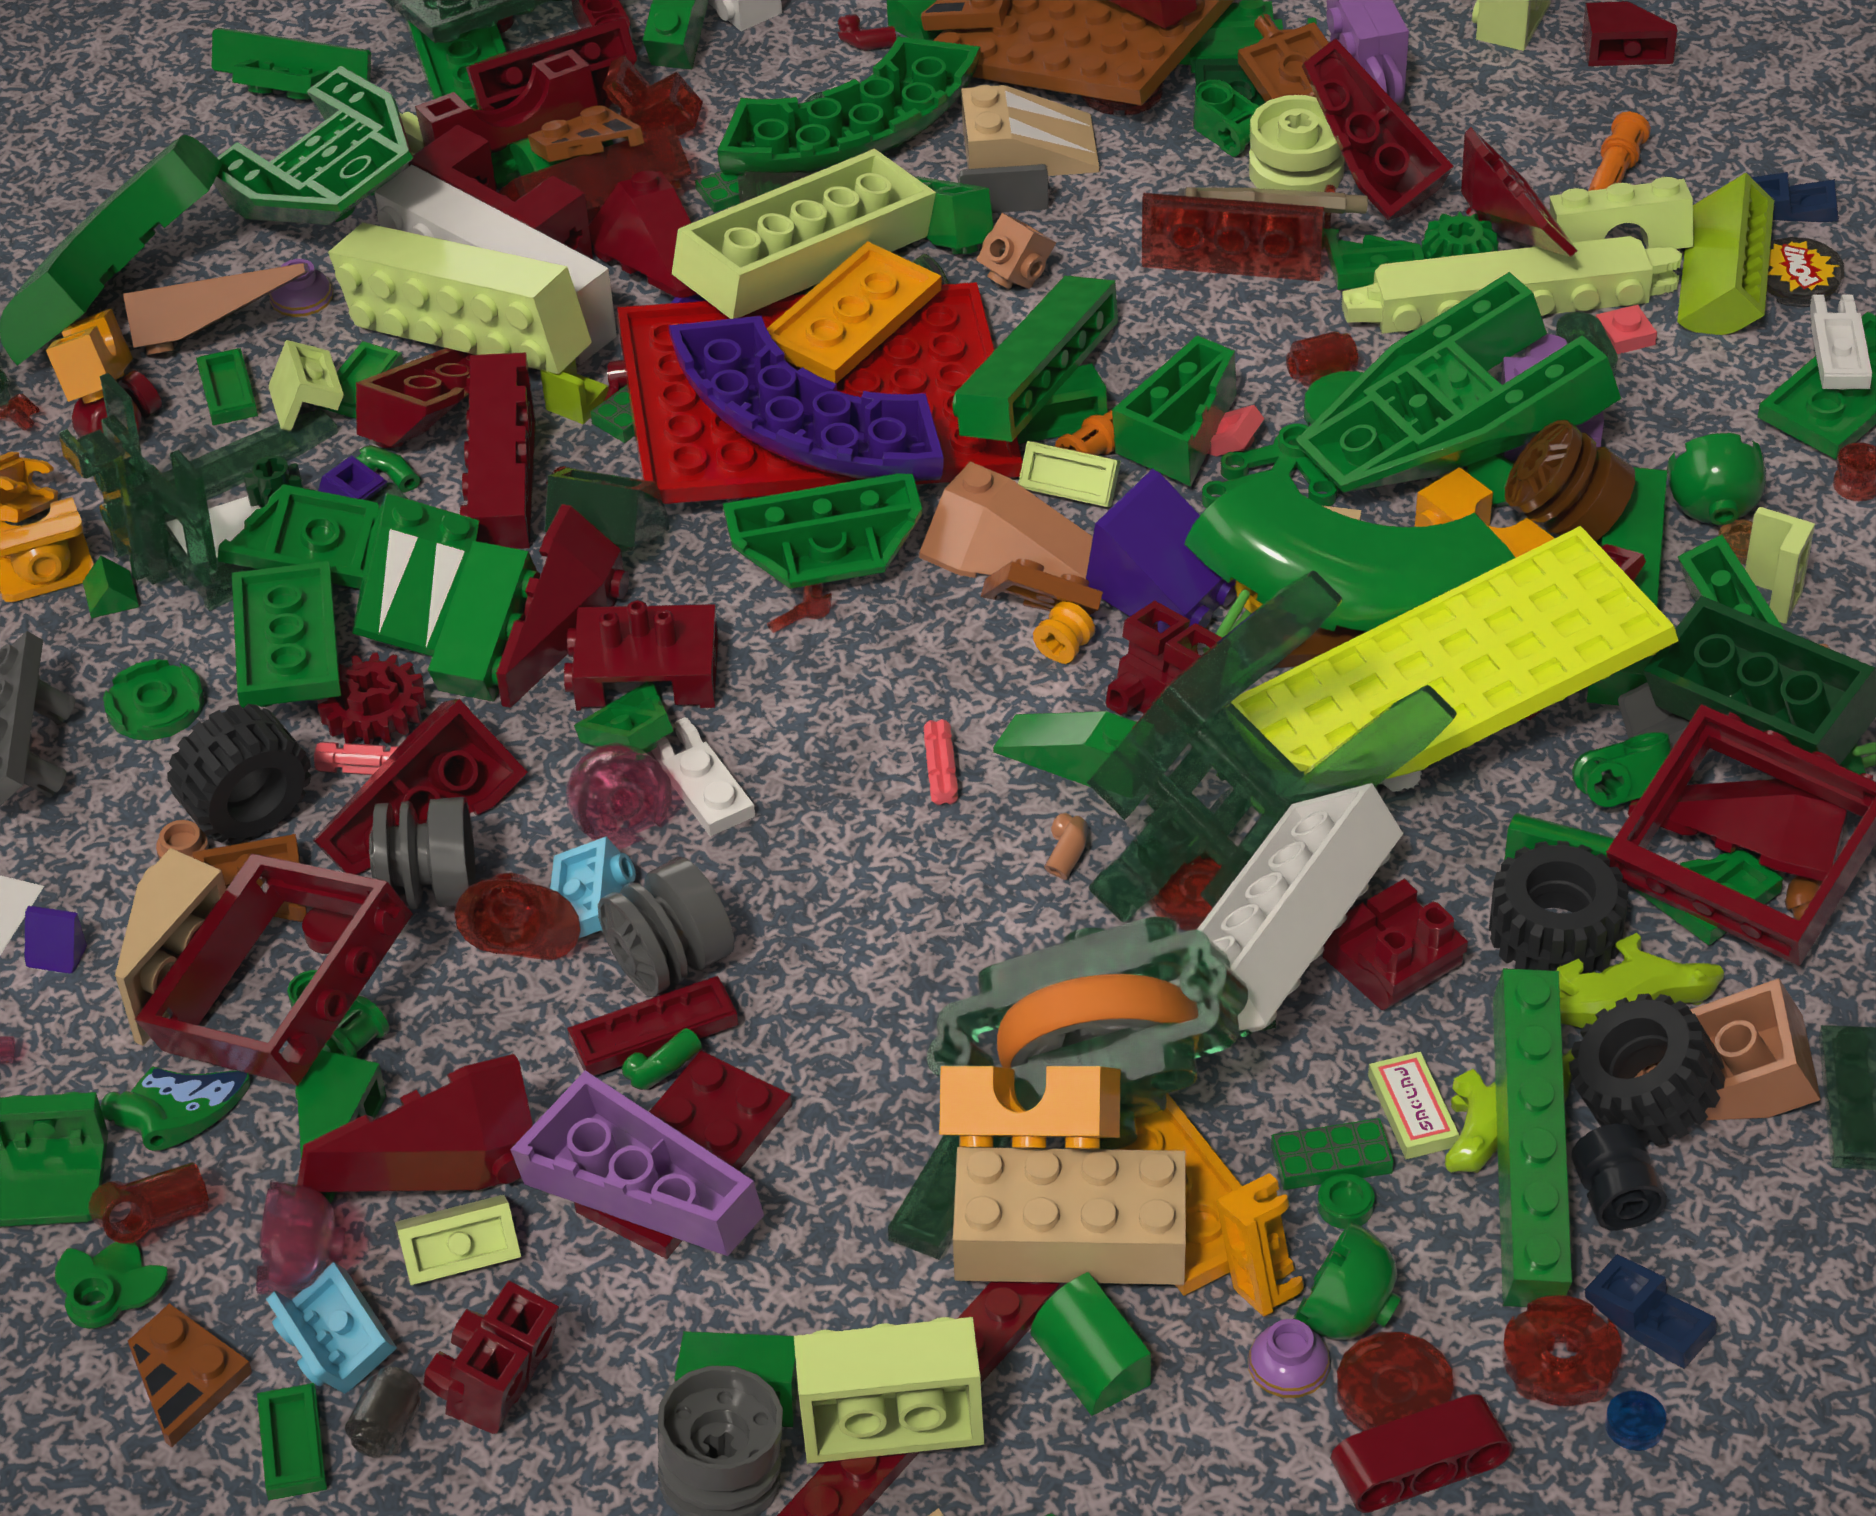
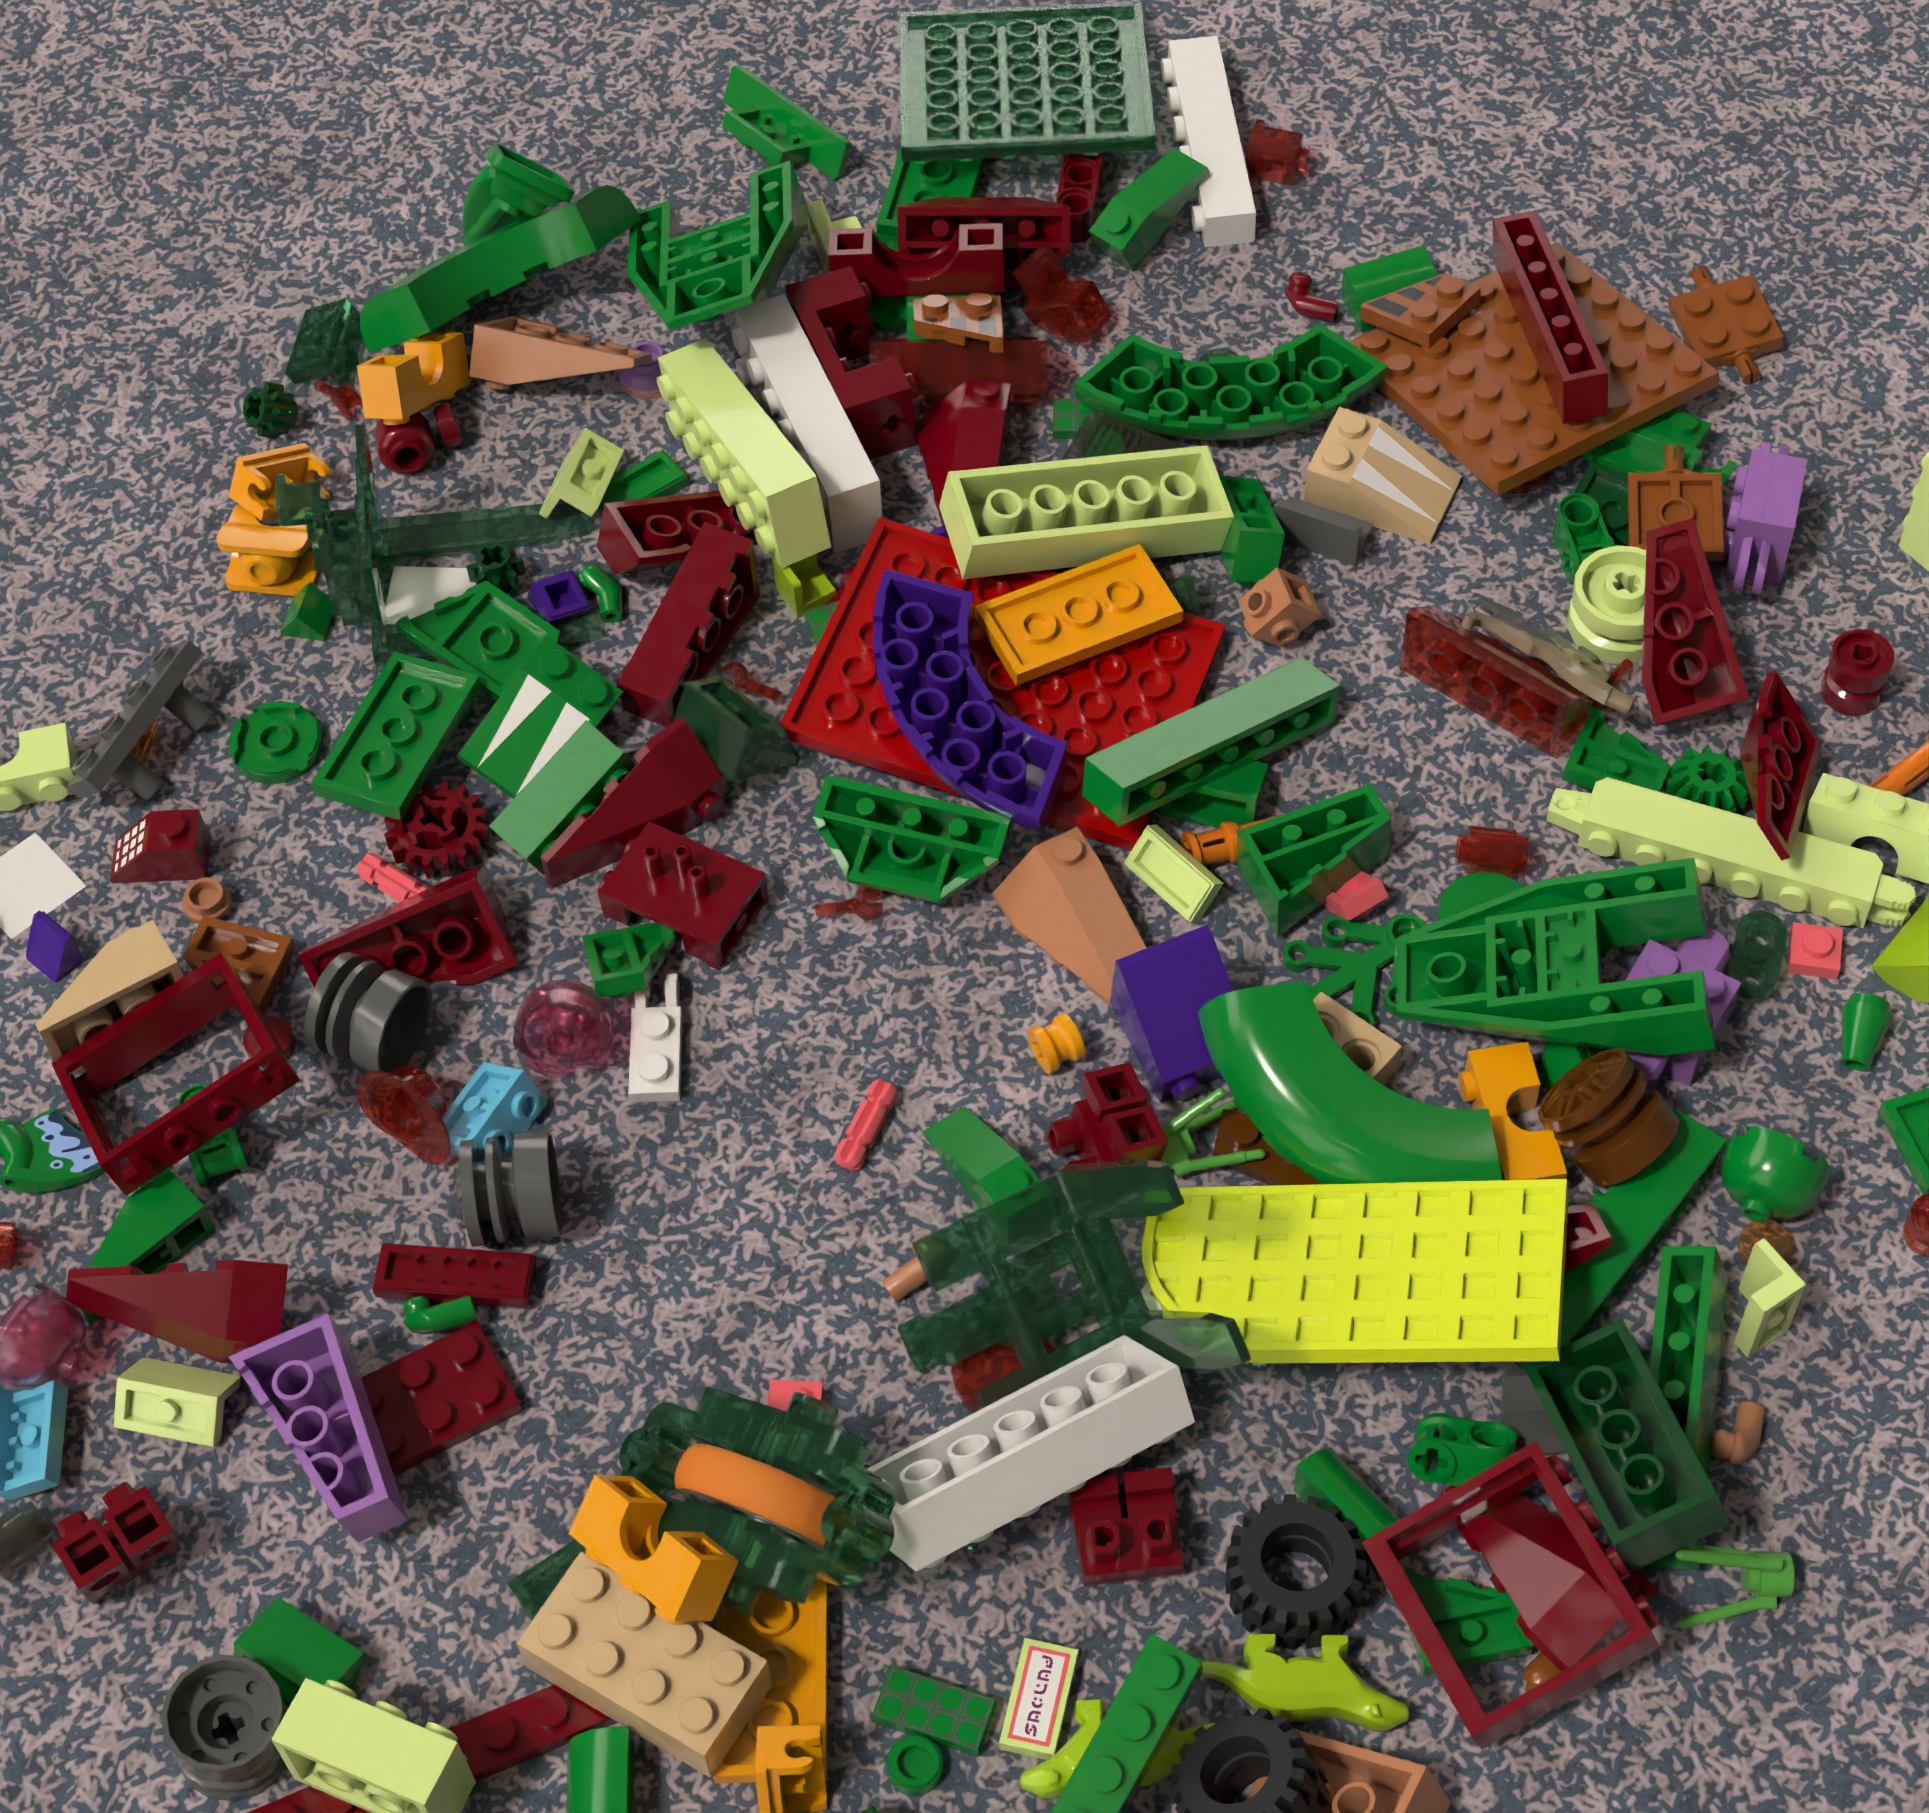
camera: 30 degrees right, 10 degrees up
(87, 172) = (510, 191): none -> green piece
(106, 818) = (162, 848): none -> dark red slope
(226, 386) = (527, 446): green tile -> none
(239, 773) = (269, 862): black tyre -> none
(1039, 588) = (1049, 981): dark orange wing -> none
(1519, 124) = (1857, 672): none -> dark red wheel
(1705, 362) = (1863, 1029): none -> green cone

